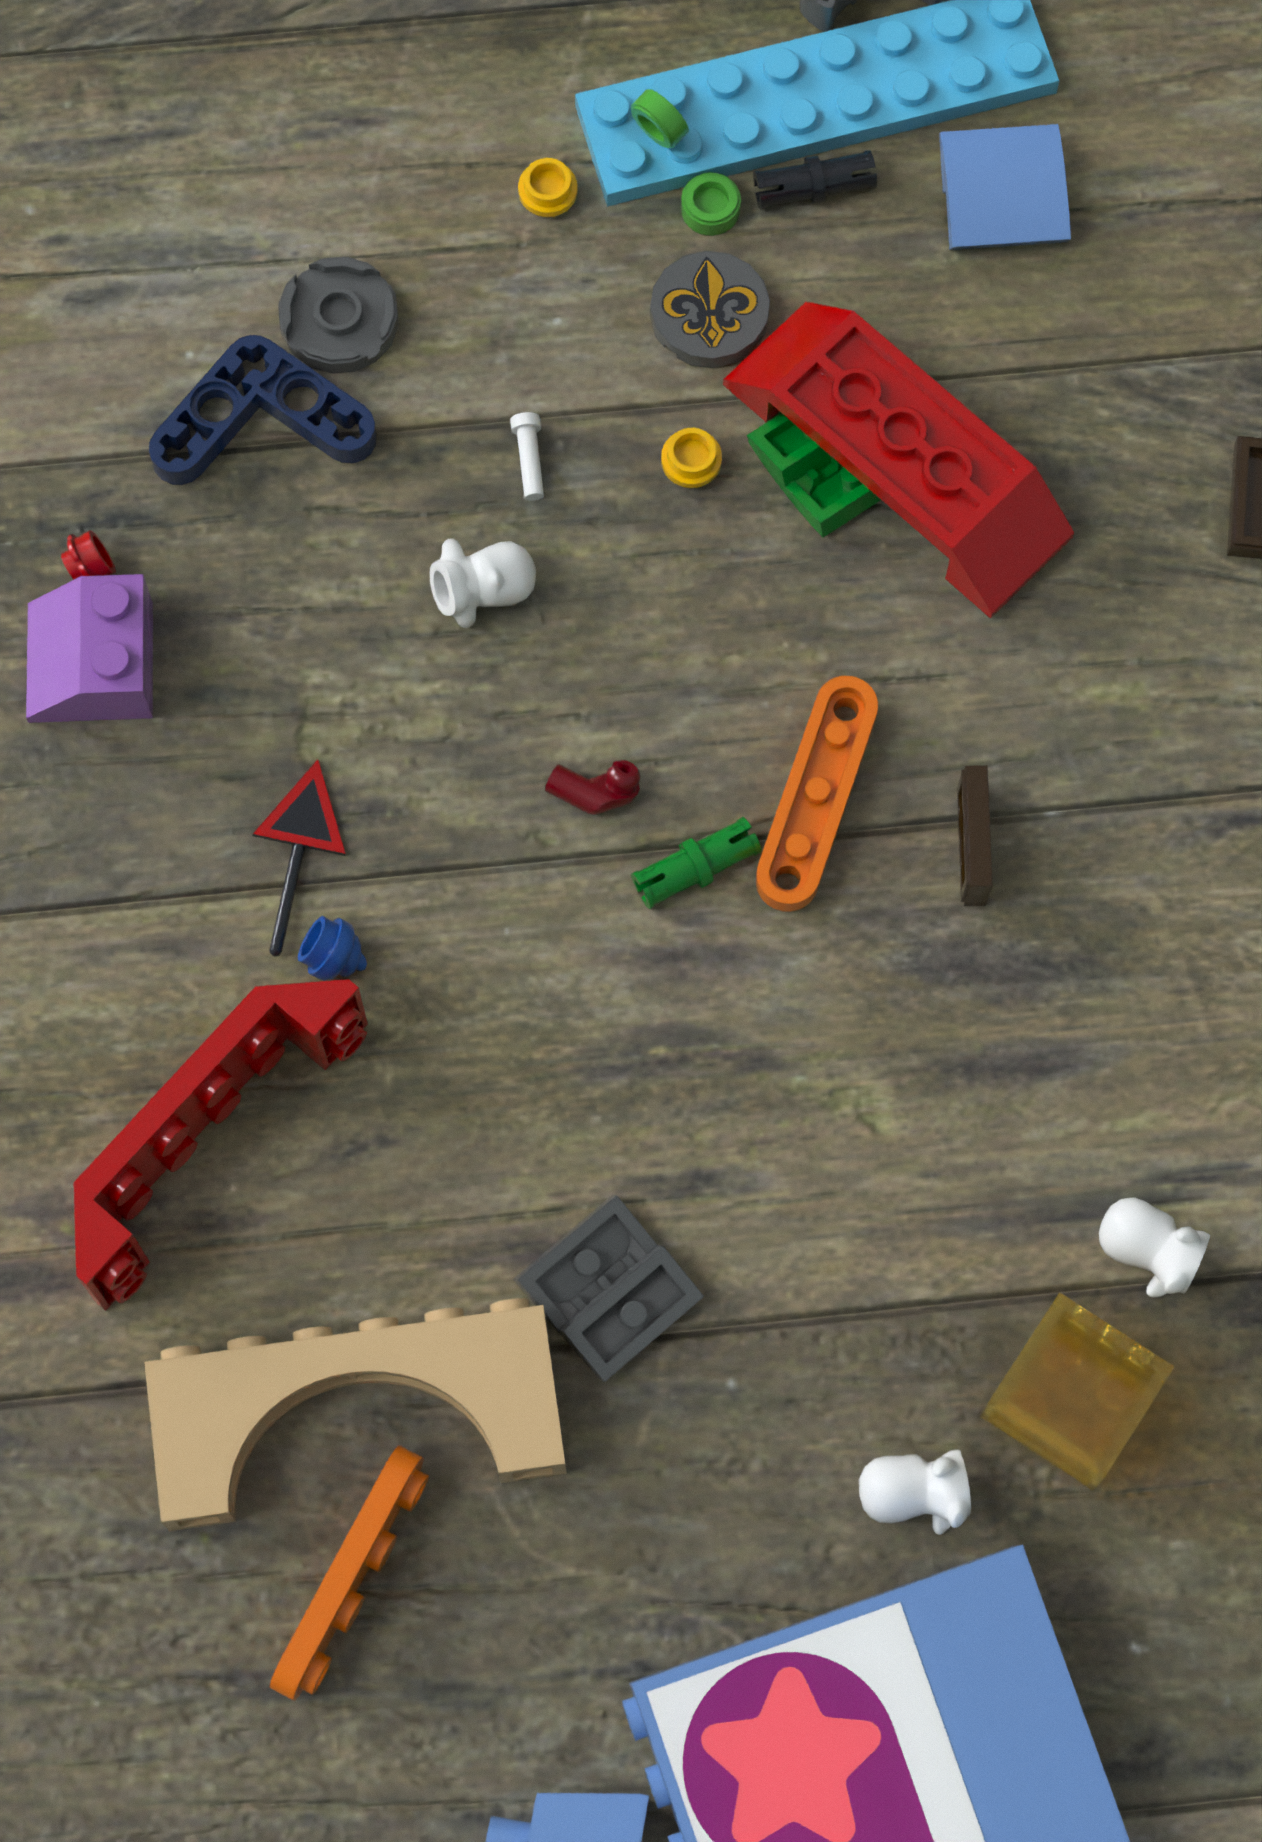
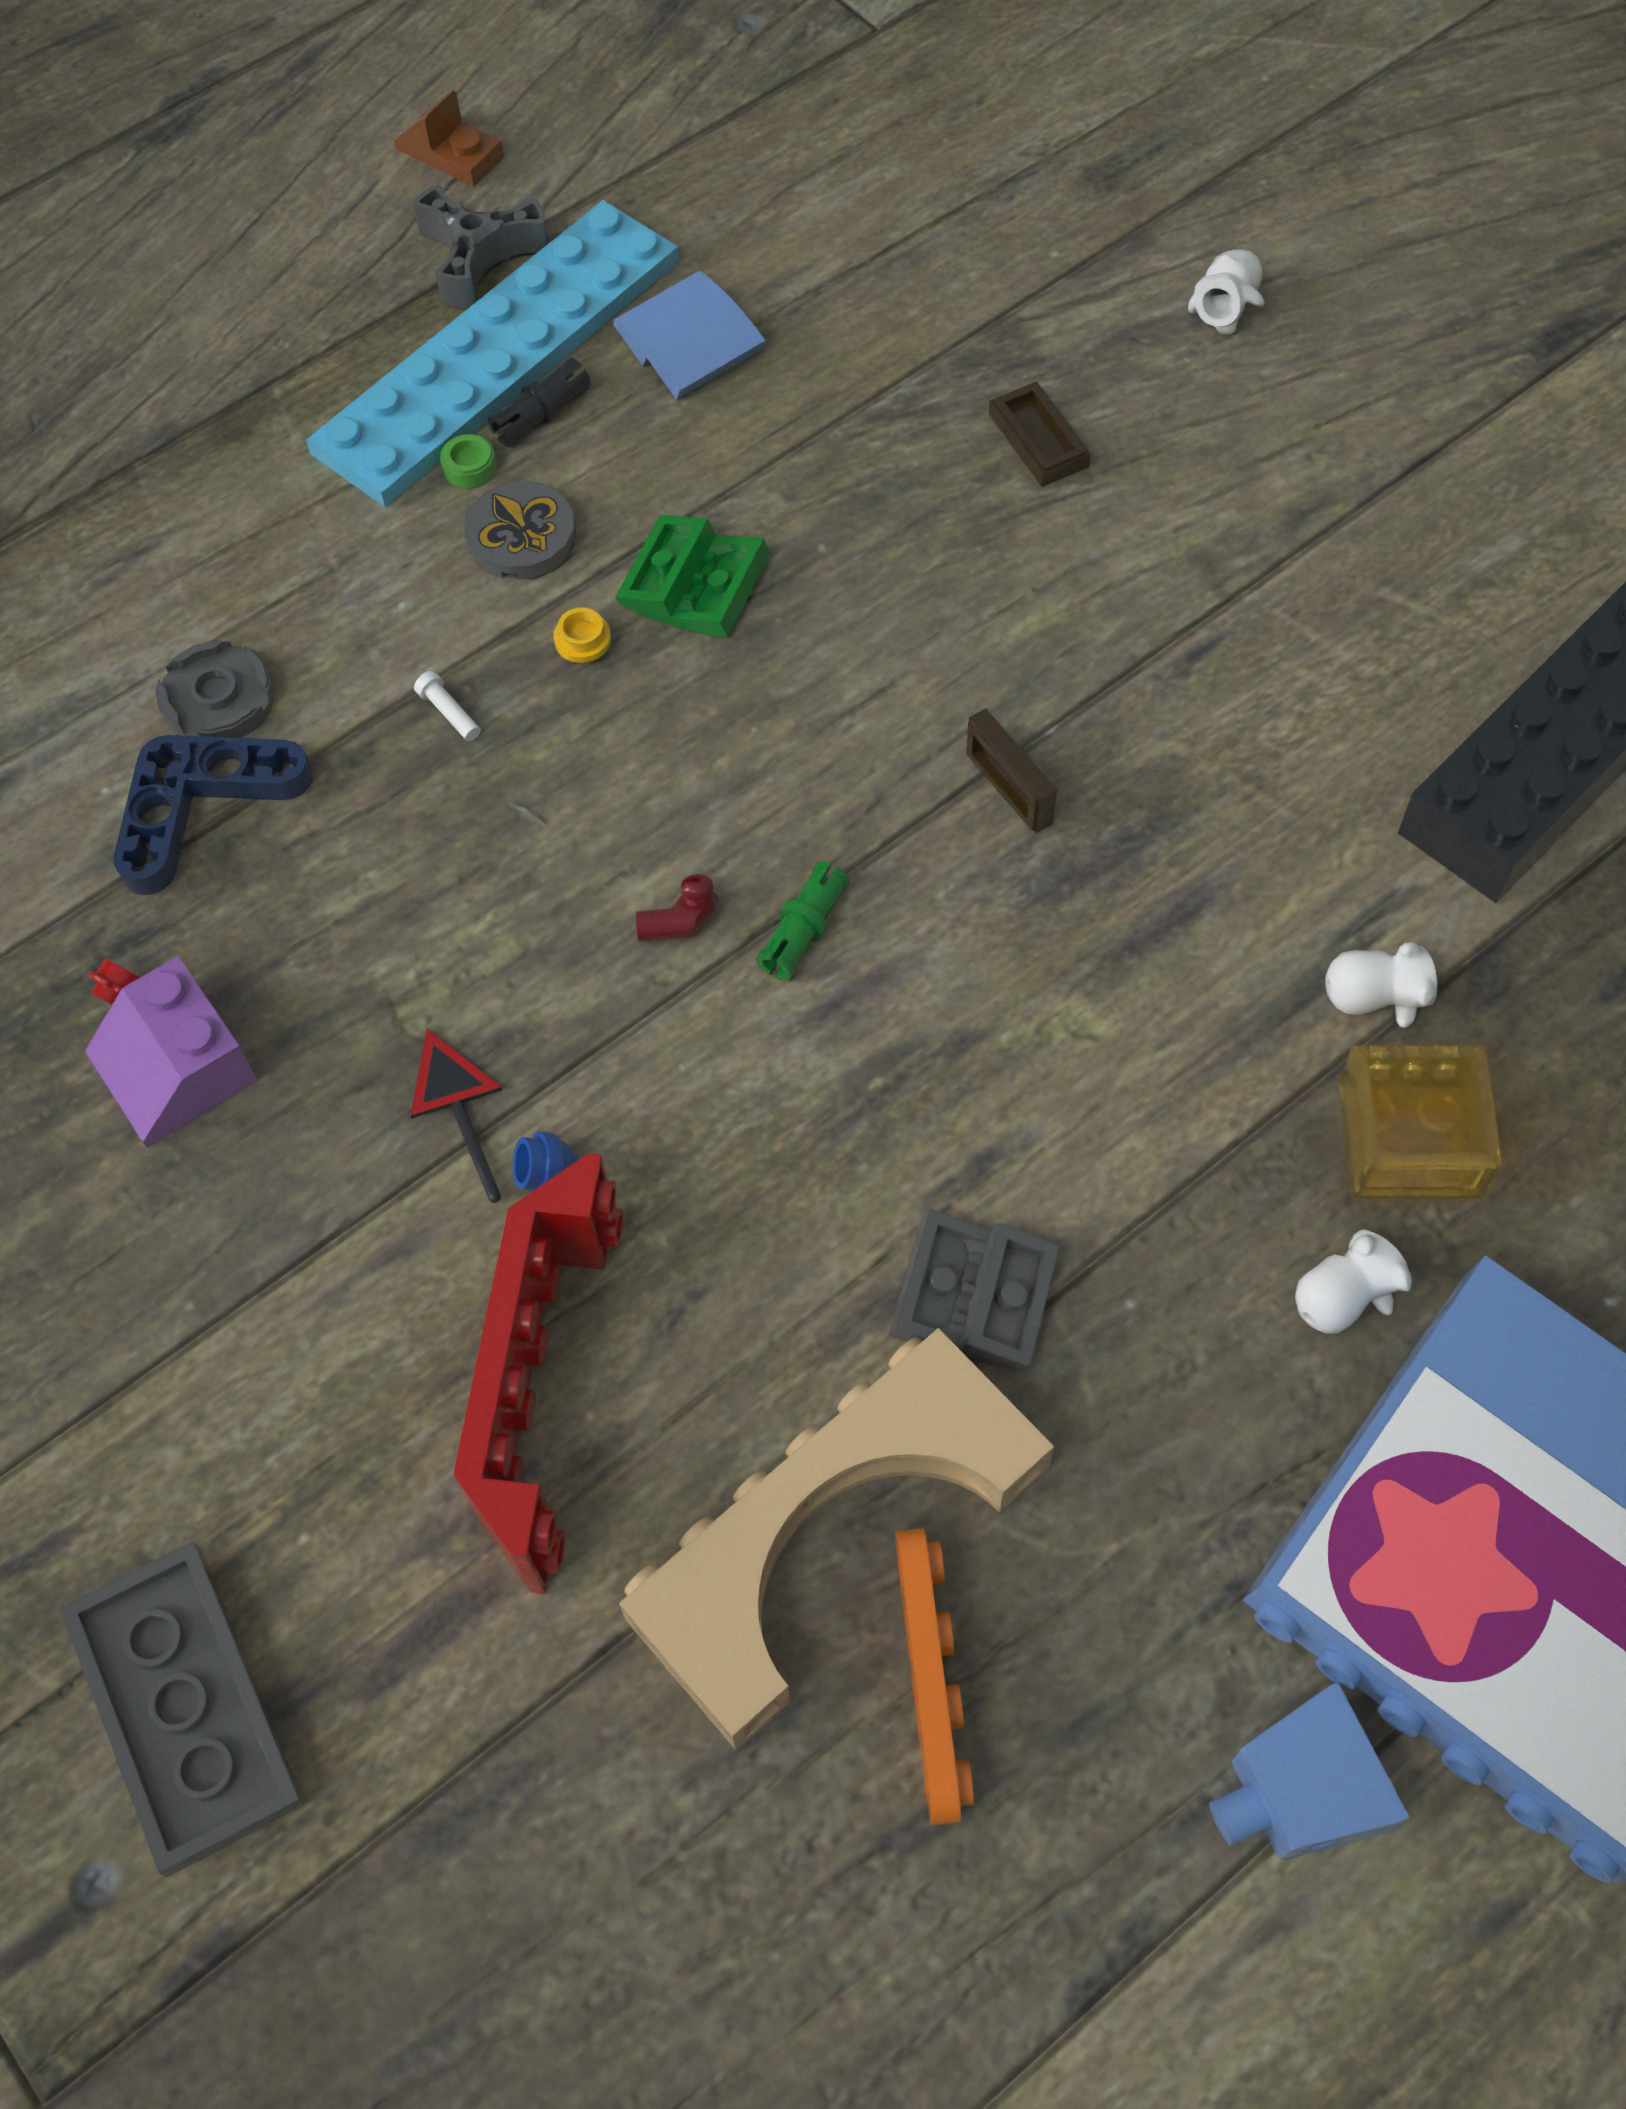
camera: 30 degrees left, 10 degrees down
(488, 578) = (478, 805): white animal -> none
(547, 187) = (328, 513): yellow plate -> none
(659, 119) = (389, 409): bright green tile -> none
(816, 793) = (863, 814): orange plate -> none
(909, 447) = (751, 523): red slope -> none

